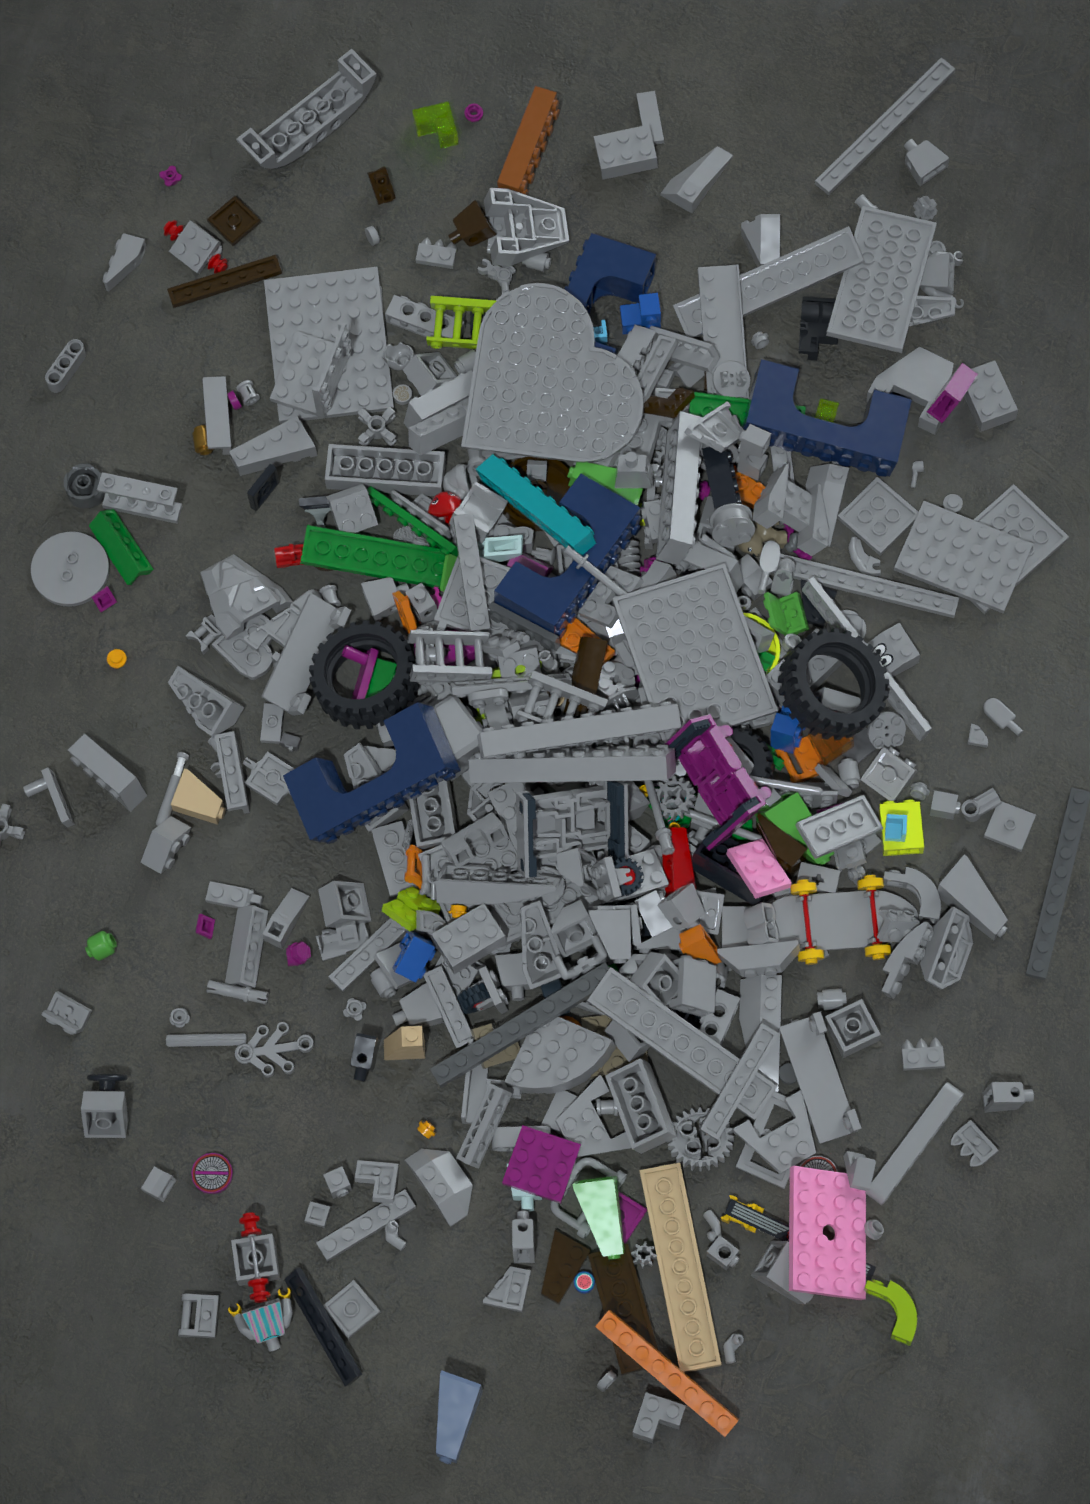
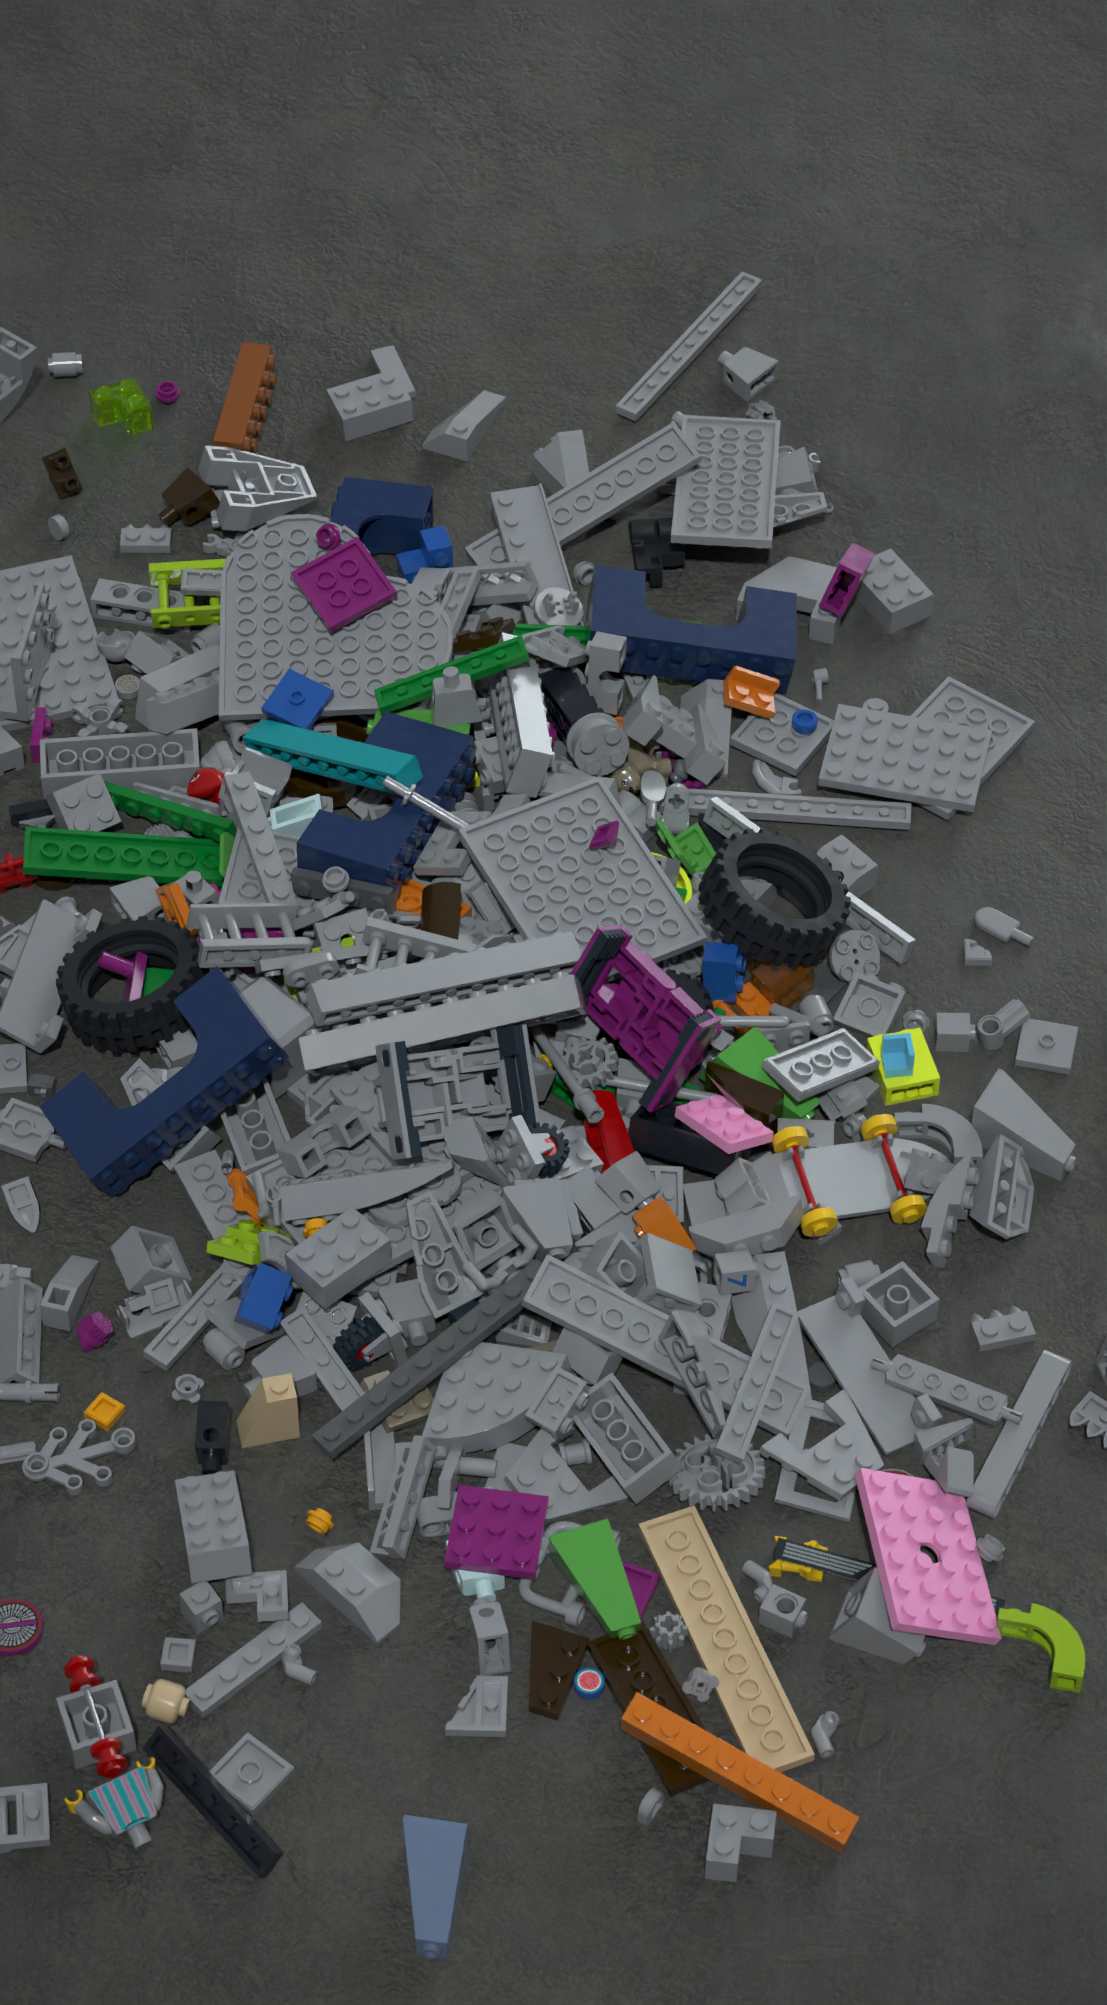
camera: 15 degrees left, 20 degrees down
(263, 840) = (22, 1203): none -> light grey plate
(296, 1016) = (104, 1411): none -> light orange tile
(303, 1249) = (165, 1701): none -> tan head
(334, 424) = (41, 727): none -> magenta plate
(353, 1127) = (213, 1526): none -> light grey brick
(399, 74) = (65, 364): none -> light grey brick
(467, 318) = (201, 582): none -> light grey plate
(518, 623) = (335, 879): none -> light grey plate
(519, 446) = (297, 700): none -> blue plate
(525, 1104) = (455, 1467): none -> light grey piece
(563, 310) = (328, 536): none -> magenta plate
(568, 354) = (344, 584): none -> magenta plate
(599, 1077) = (558, 1402): none -> light grey bracket
(650, 446) = (477, 665): none -> green plate
(656, 1299) = (697, 1676): none -> light grey plate
(697, 1060) = (691, 1353): none -> light grey wedge
(718, 618) = (605, 836): none -> magenta slope
(743, 988) = (735, 1272): none -> light grey brick
(856, 1140) = (939, 1438): none -> light grey slope
(858, 483) = (750, 691): none -> orange bracket
(870, 1105) = (947, 1389): none -> light grey plate
(895, 511) = (804, 721): none -> blue tile

